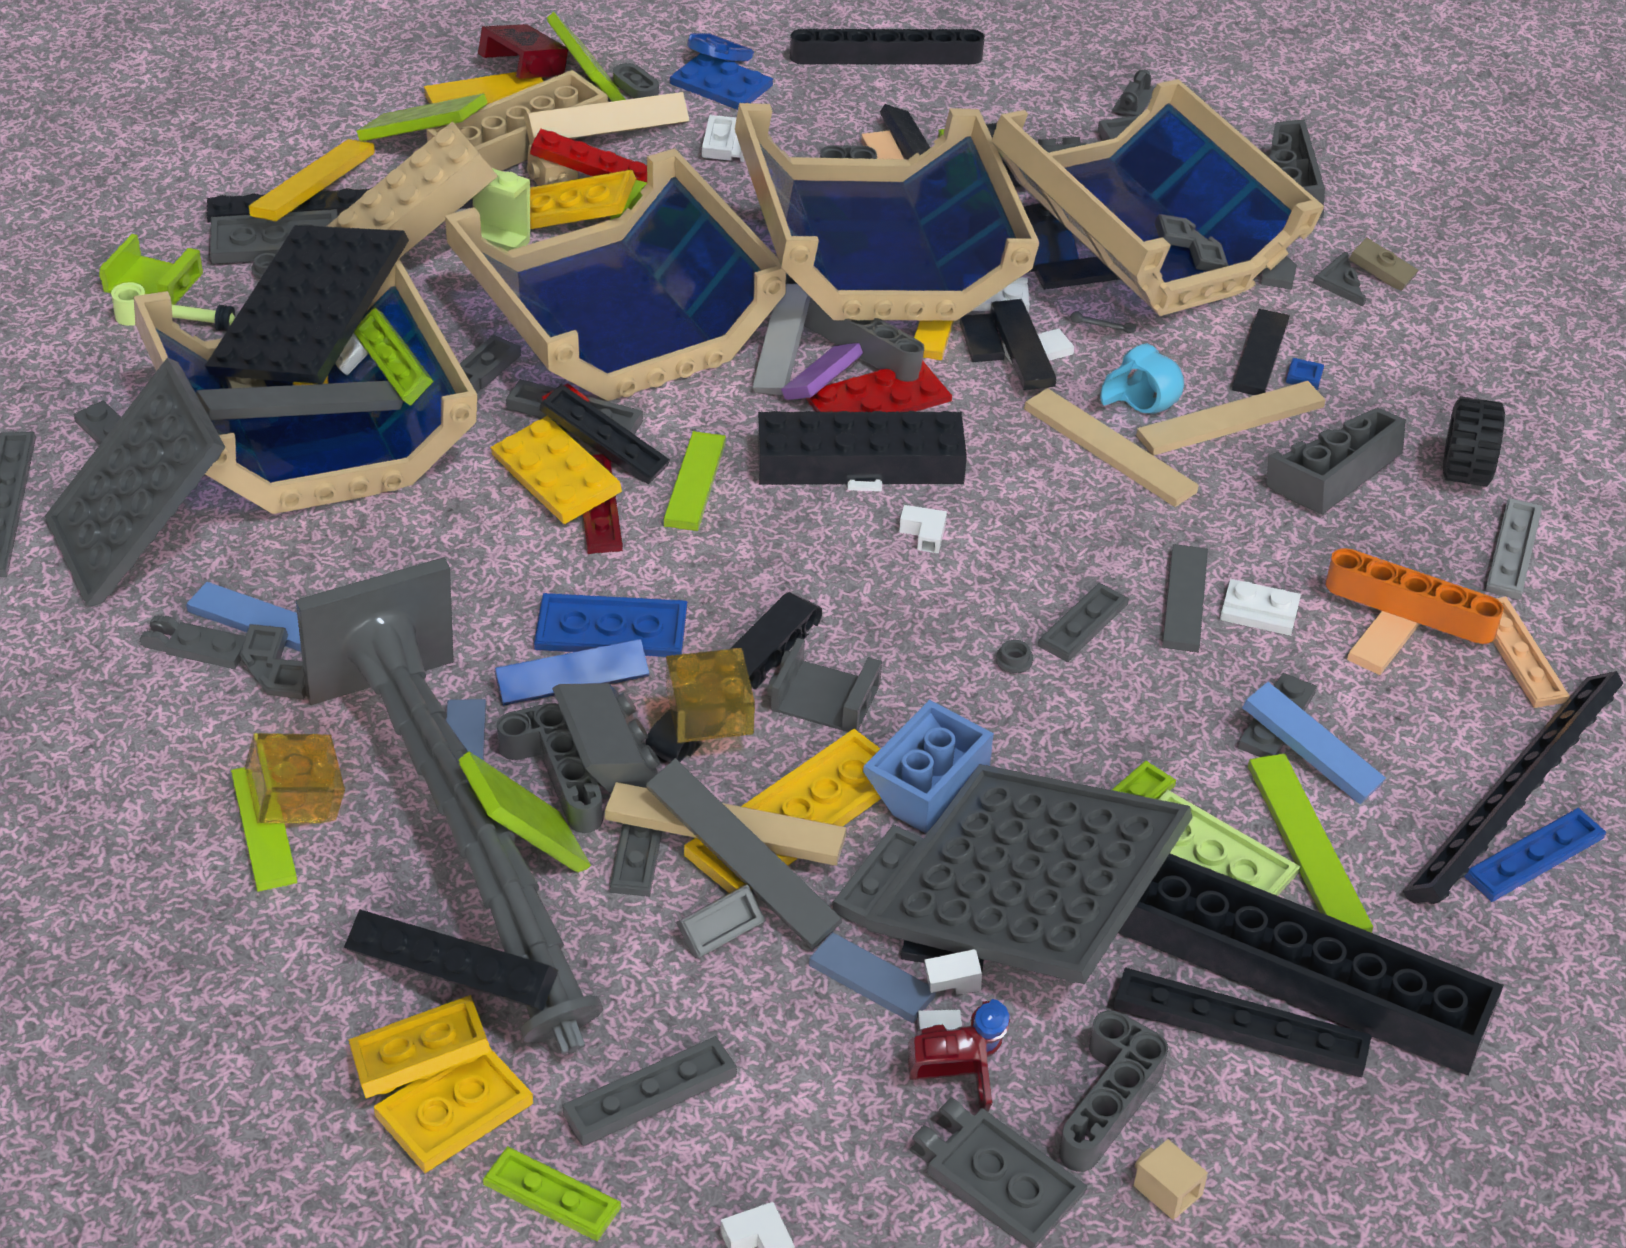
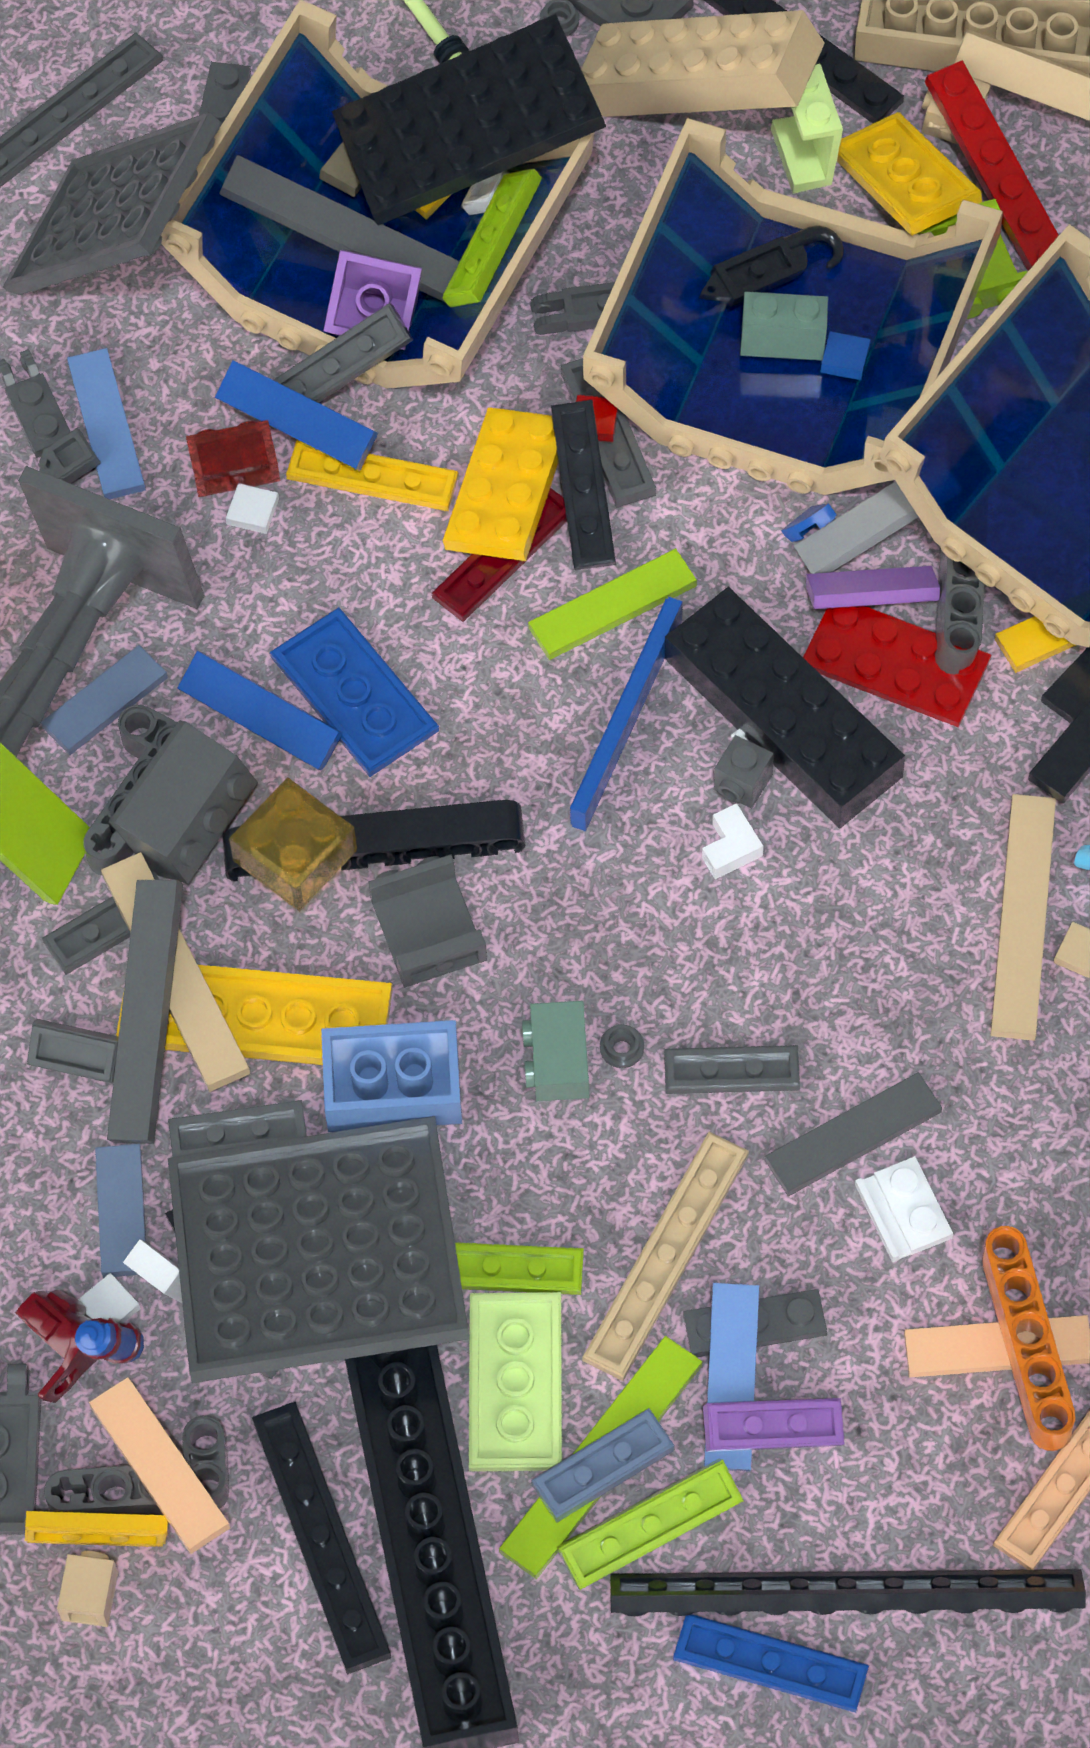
camera: 55 degrees right, 20 degrees up
(361, 425) = (368, 284): none -> medium lavender slope
(373, 558) = (232, 457): none -> clear red brick
(377, 481) = (348, 355): none -> dark grey tile
(385, 520) = (296, 415): none -> blue tile
(465, 525) = (378, 477): none -> yellow tile
(561, 278) = (768, 265): none -> black plate
(613, 290) = (784, 326): none -> sand green brick
(660, 287) = (845, 355): none -> blue tile
(743, 368) = (815, 515): none -> blue tile
(785, 515) = (624, 716): none -> blue tile
(885, 488) = (743, 772): none -> dark grey brick
(991, 682) = (559, 1051): none -> sand green brick
(1118, 1060) = (159, 1465): none -> light nougat tile
(1125, 1140) = (95, 1529): none -> yellow tile
(1189, 730) = (665, 1256): none -> tan tile
(1322, 842) = (602, 1465): none -> sand blue tile
(1366, 743) = (773, 1424): none -> medium lavender tile
(1384, 848) = (650, 1523): none -> lime tile

